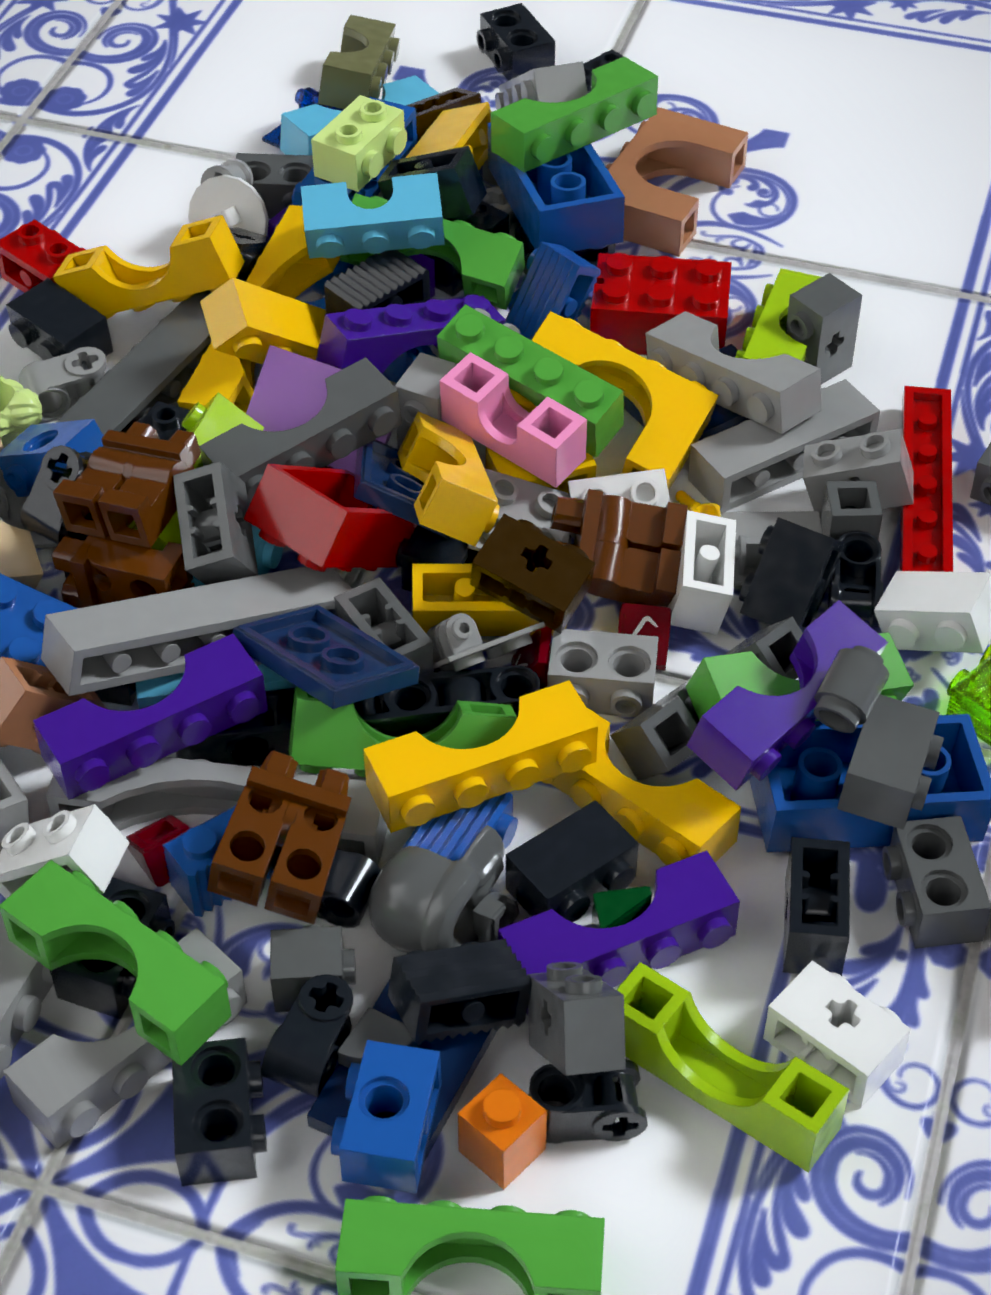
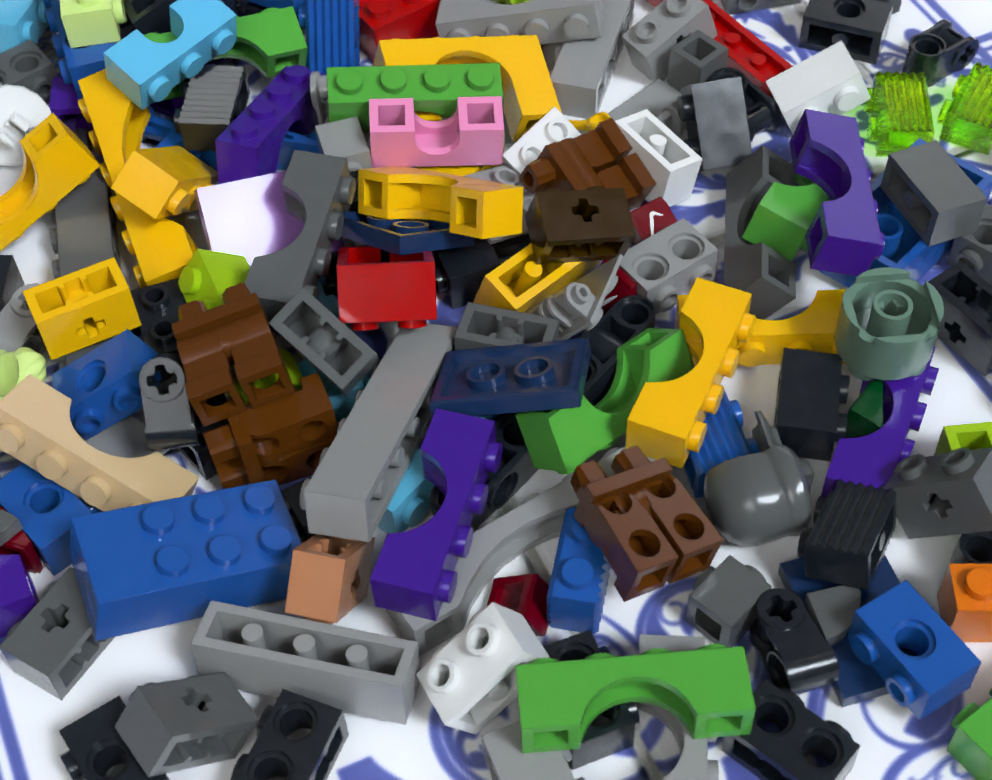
camera: 40 degrees left, 5 degrees up
(89, 384) = (82, 308): none -> yellow brick
(691, 840) = (888, 325): none -> sand green brick
(850, 688) = (884, 158): dark grey brick -> none

